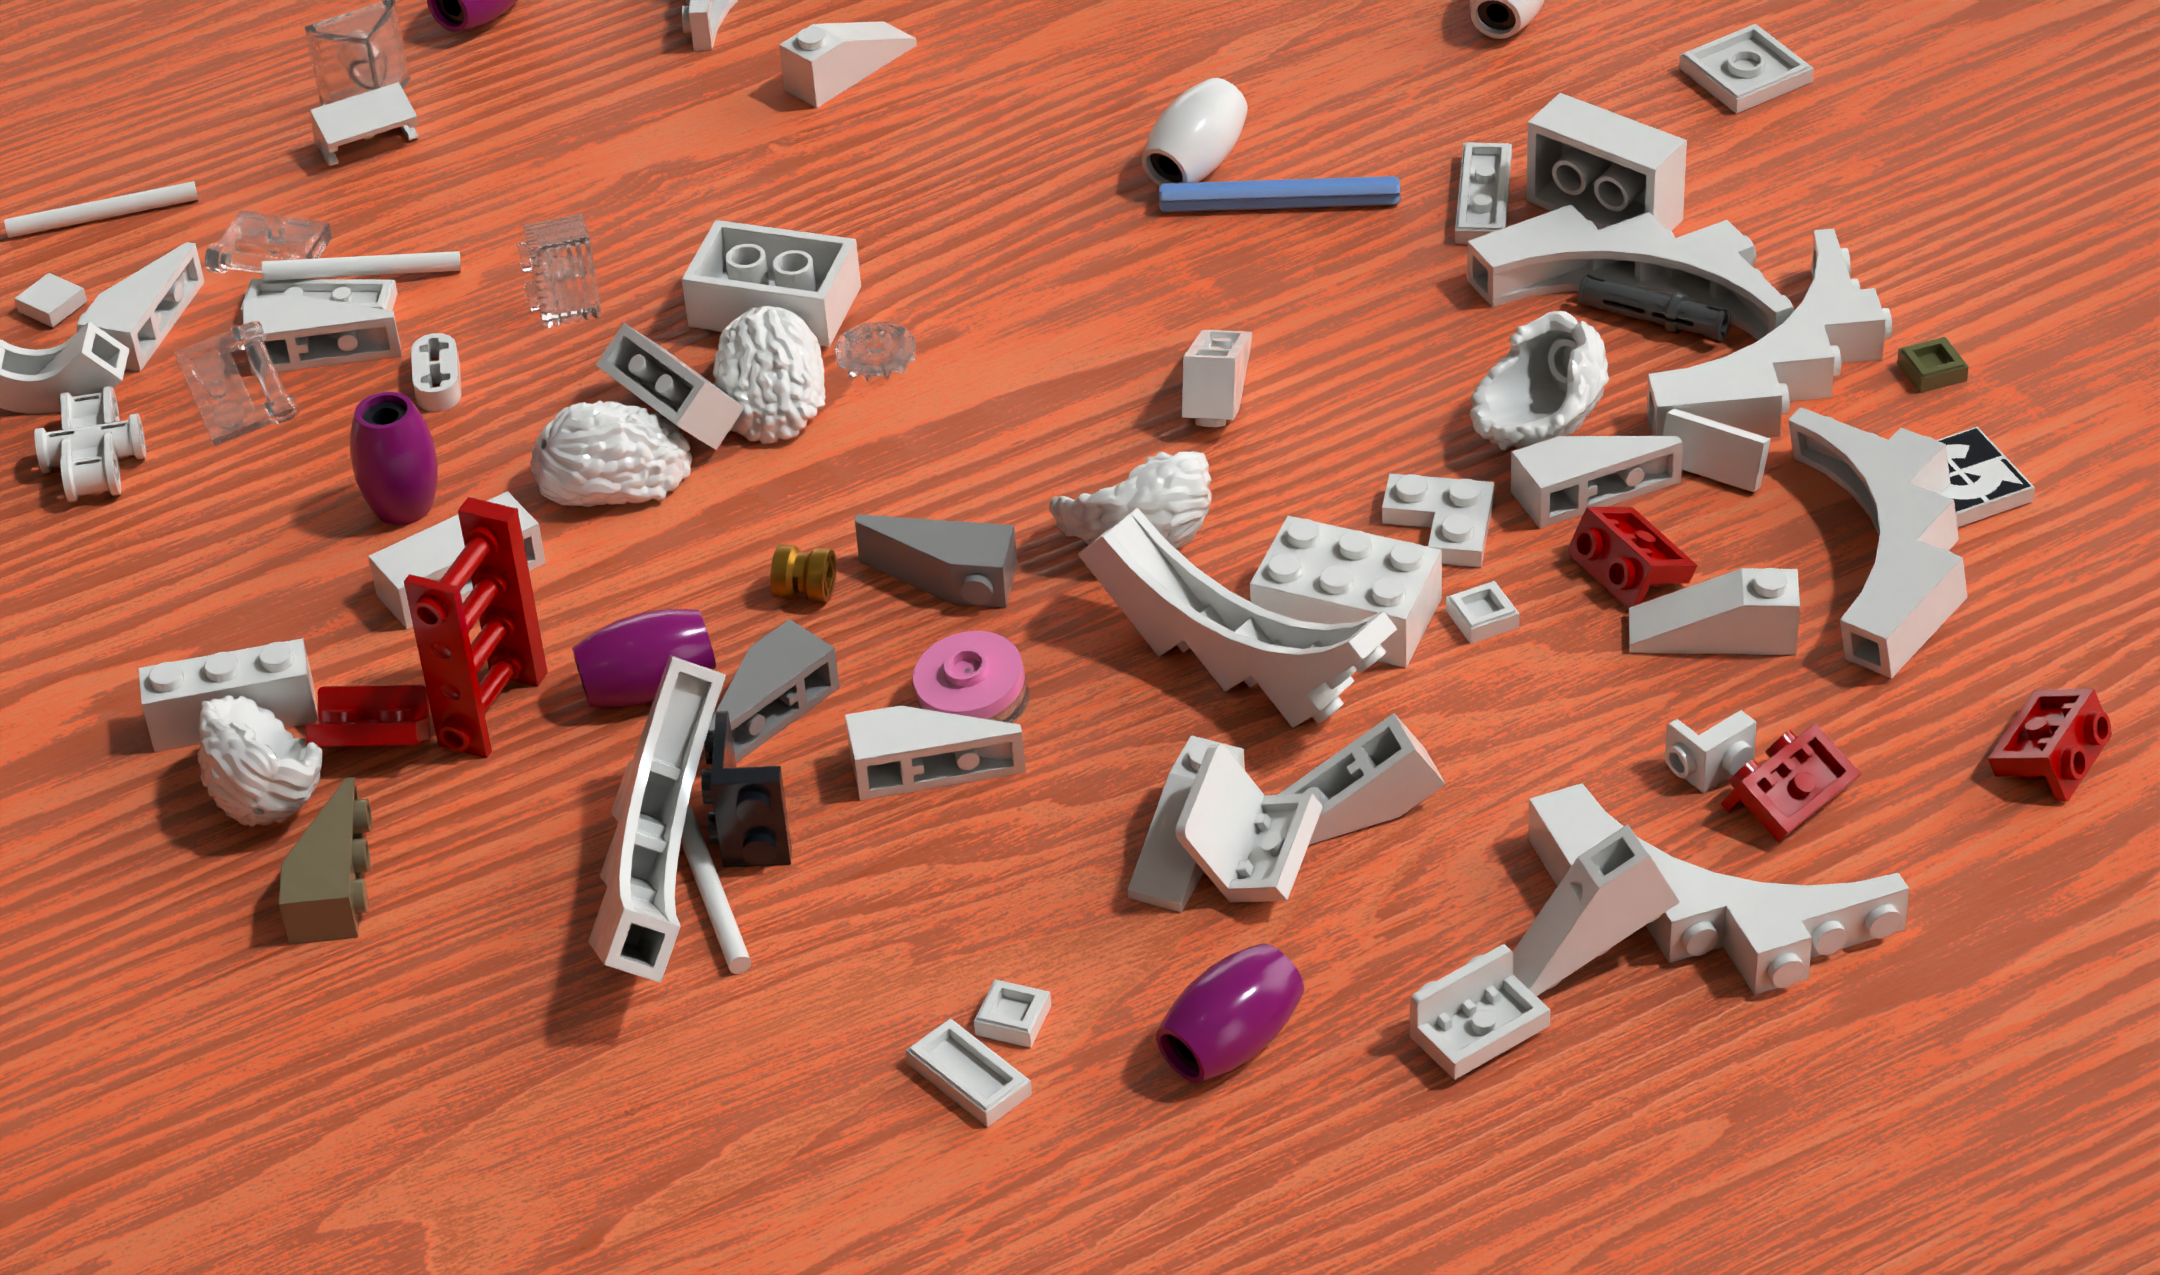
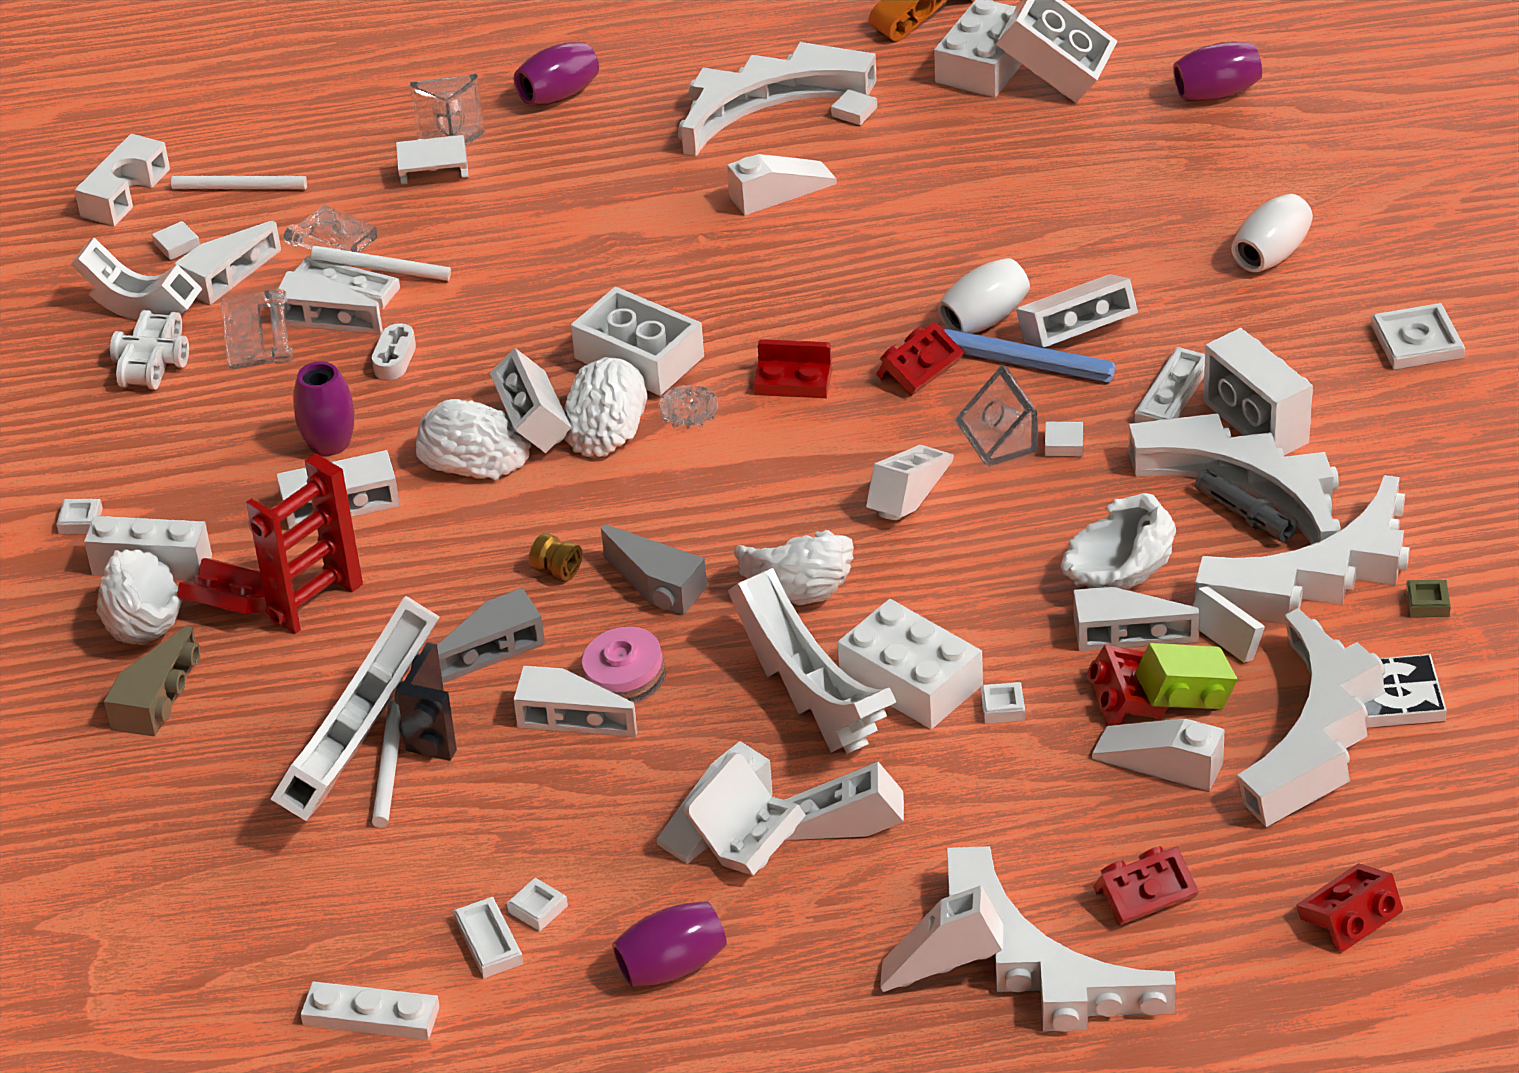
camera: 20 degrees right, 0 degrees up
(98, 680) = (77, 515): none -> white tile
(560, 269) = (500, 297): clear brick -> none
(628, 657) = (431, 583): magenta piece -> none
(858, 1209) = (370, 1010): none -> white plate
(990, 274) = (793, 368): none -> red bracket
(1150, 225) = (920, 358): none -> red bracket
(1296, 273) = (1000, 420): none -> clear slope
(1321, 125) = (1076, 310): none -> white brick
(1382, 281) = (1064, 439): none -> white tile
(1453, 508) = (1020, 621): white plate -> none
(1475, 1013) = (836, 990): white bracket -> none
(1706, 521) = (1186, 676): none -> lime brick
(1712, 755) = (1102, 847): white bracket -> none

